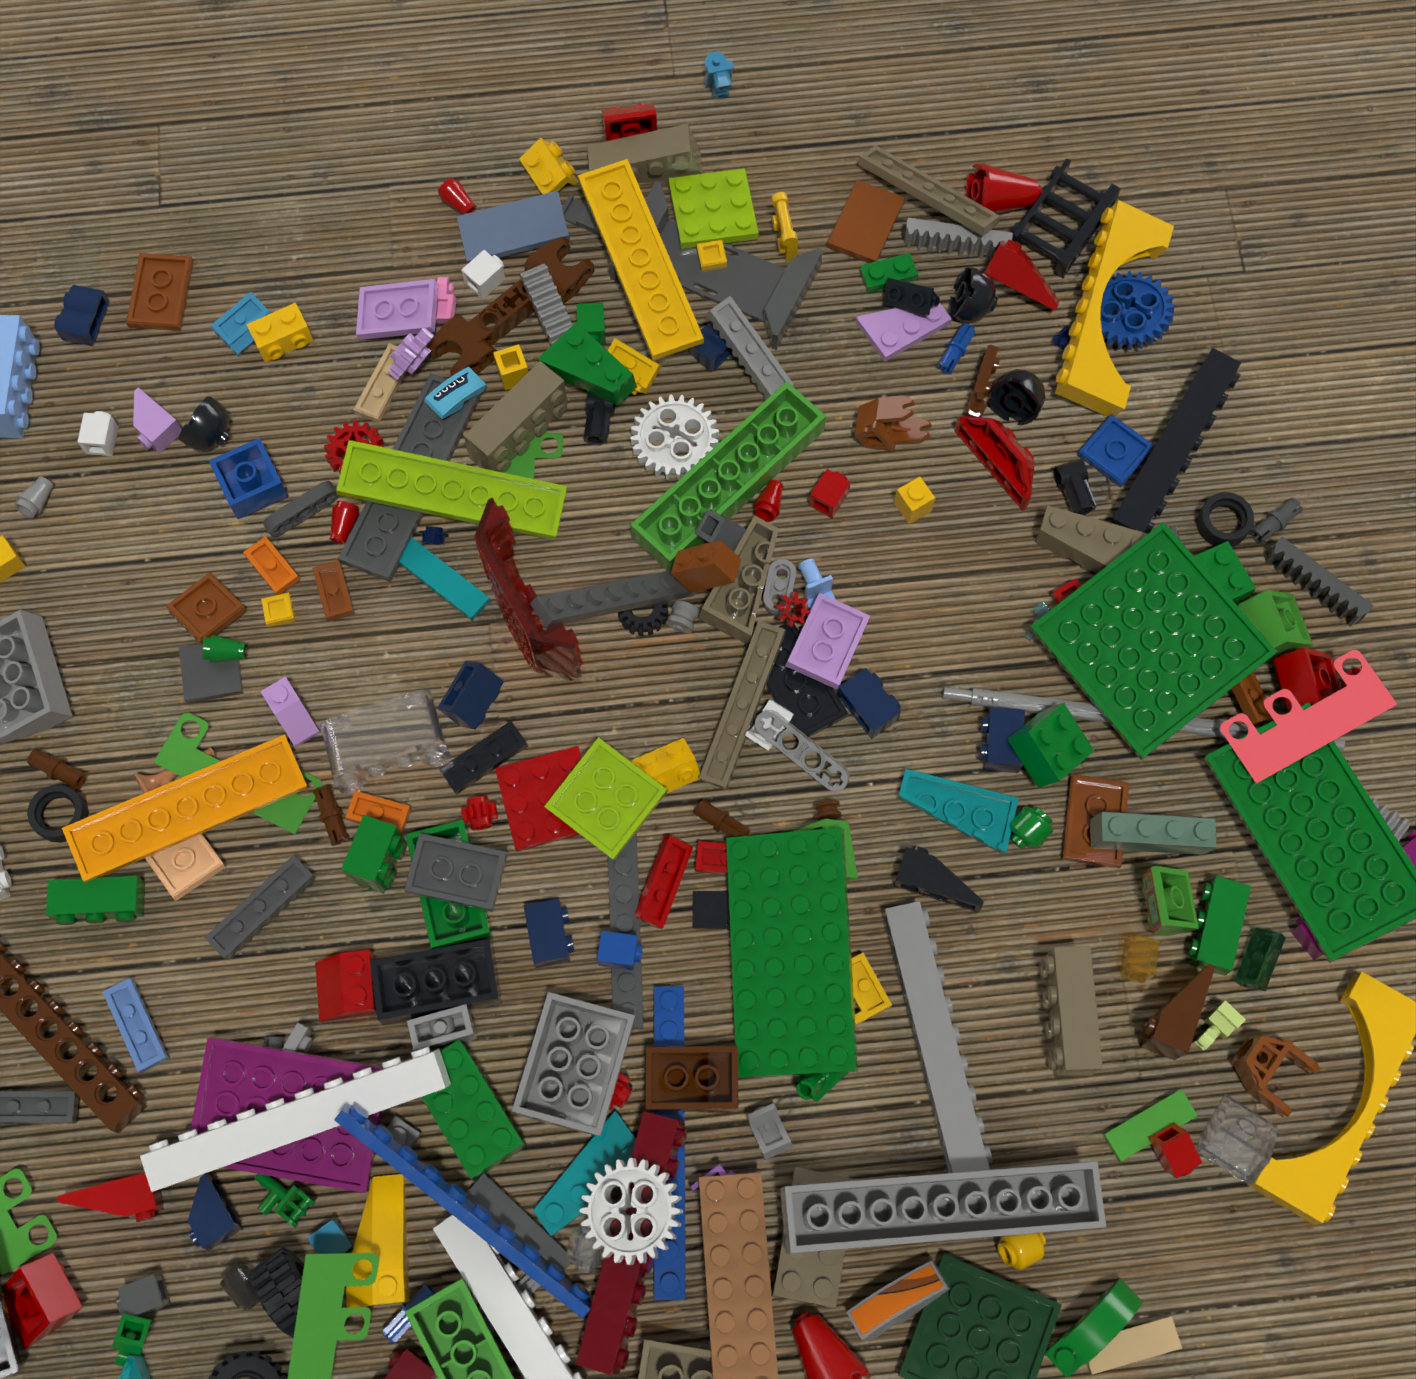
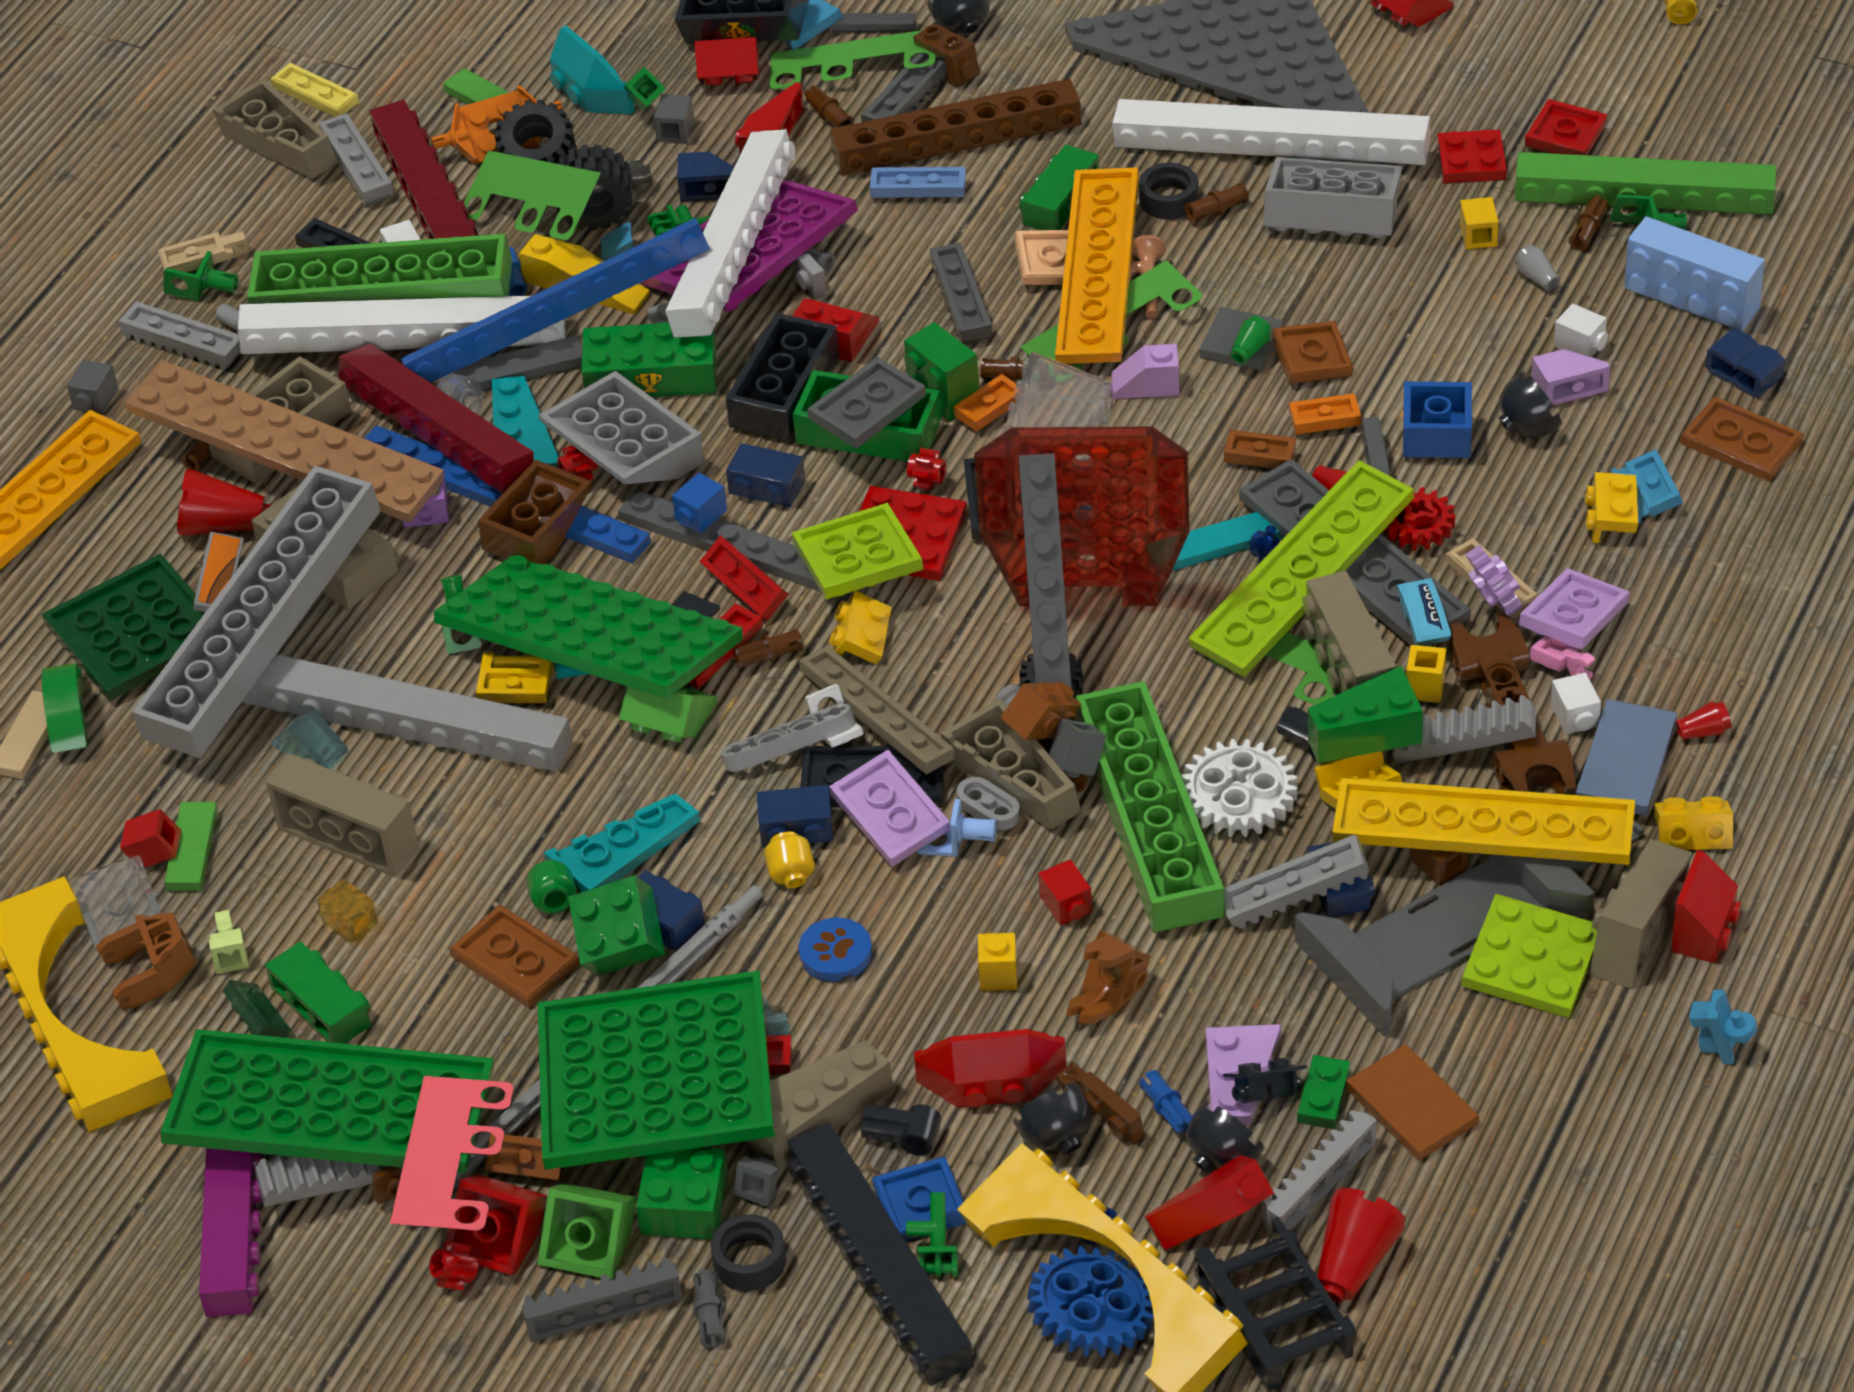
camera: 125 degrees right, 25 degrees down
(68, 1164) = (827, 107): none -> reddish brown axle
(278, 610) = (1272, 408): yellow tile -> none
(442, 1028) = (730, 359): light grey brick -> none
(591, 319) = (1440, 766): green brick -> none
(603, 1211) = (453, 402): white gear -> none
(711, 255) = (1462, 924): yellow tile -> none
(769, 502) = (1096, 837): red cone -> none
(769, 1131) = (443, 558): light grey bracket -> none
(782, 223) = (1445, 1004): yellow plate -> none
(784, 607) = (945, 783): red gear -> none
(827, 810) = (709, 733): reddish brown bush -> none
(909, 682) = (789, 859): none -> yellow head
(929, 190) = (1404, 1162): dark tan plate -> none
(931, 878) = (565, 784): black slope -> none
(959, 614) = (835, 949): none -> blue tile
(1005, 1108) = (311, 739): none -> clear light blue slope
(1149, 415) = (937, 1231): none -> green arm
(1153, 833) = (454, 975): sand green brick -> none
(1169, 901) = (377, 941): bright green slope -> none
(1175, 1023) = (258, 890): reddish brown slope -> none

